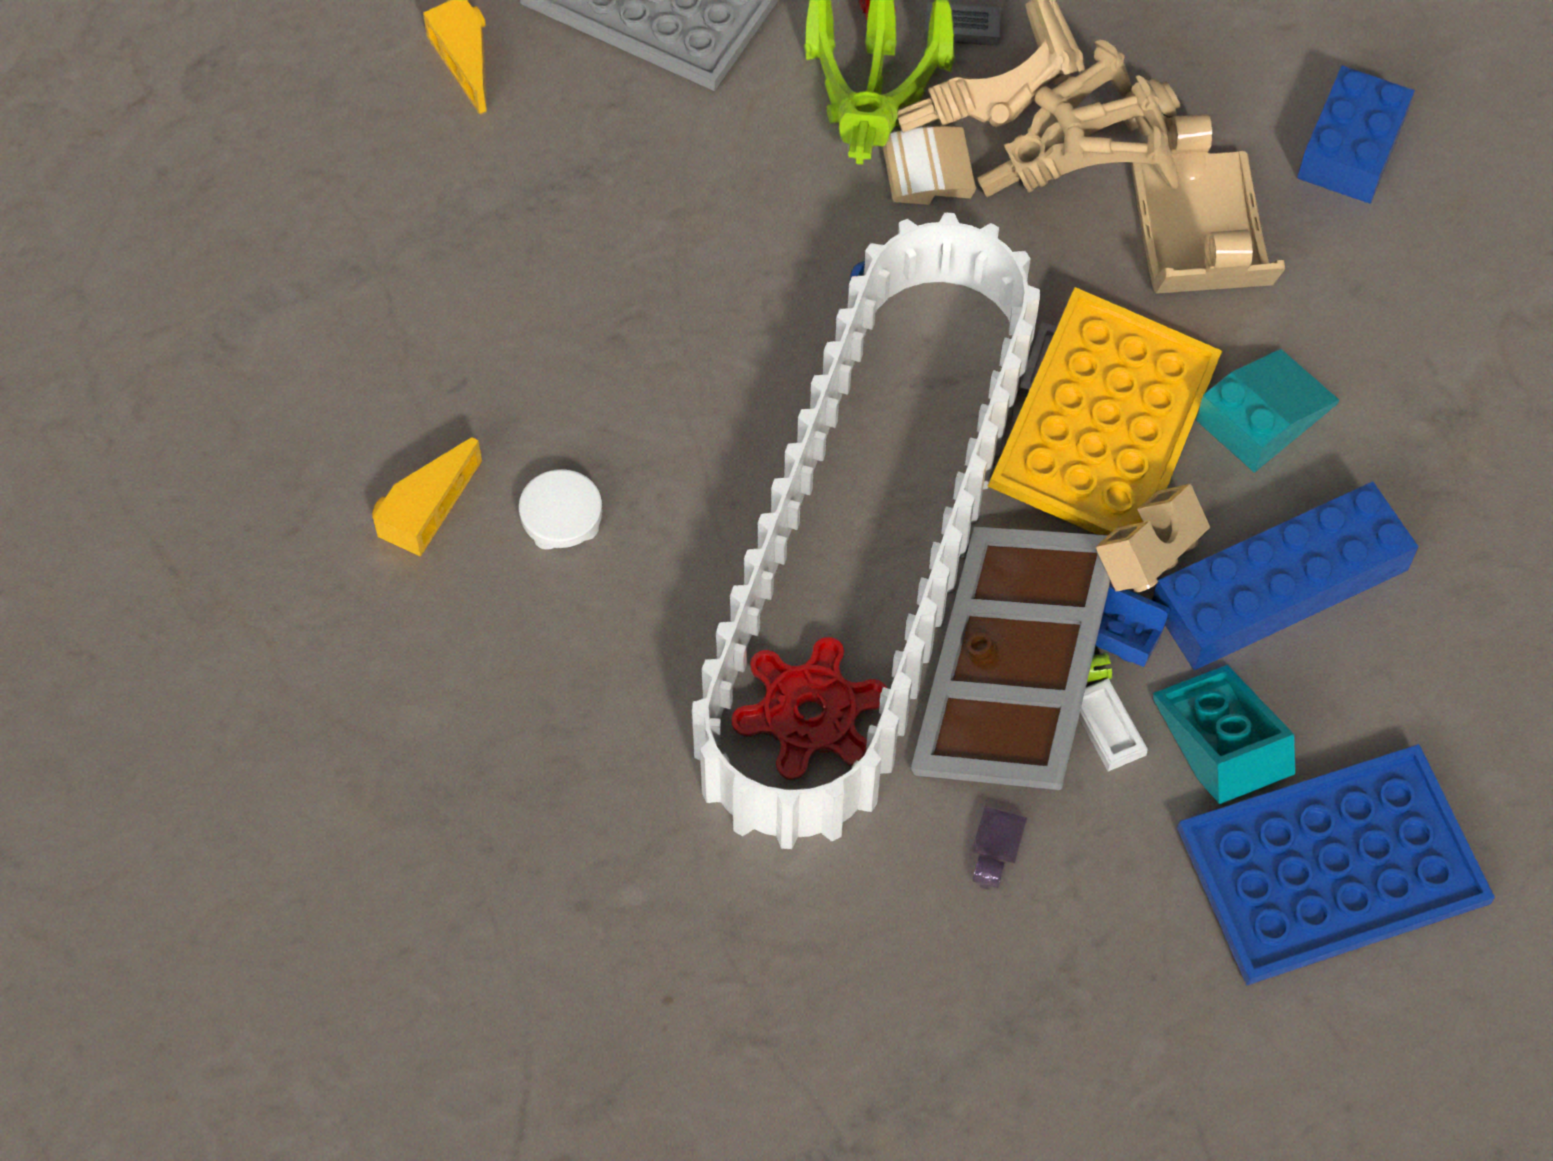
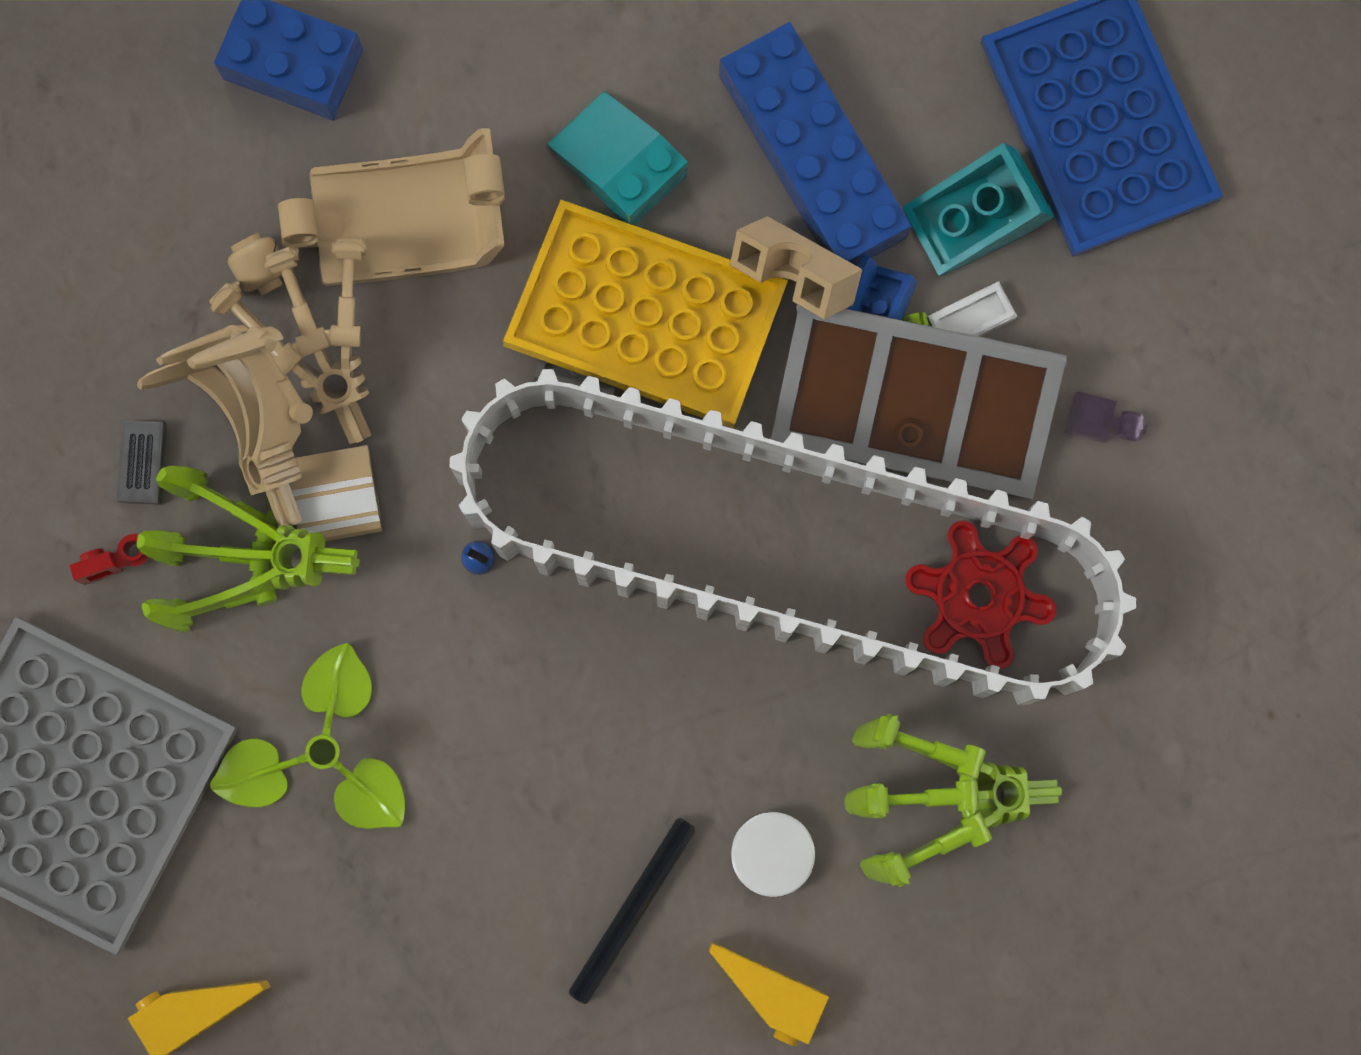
camera: 95 degrees left, 20 degrees up
(519, 391) = (631, 911): none -> black axle
(602, 648) = (973, 796): none -> lime piece
(676, 103) = (369, 795): none -> lime plant

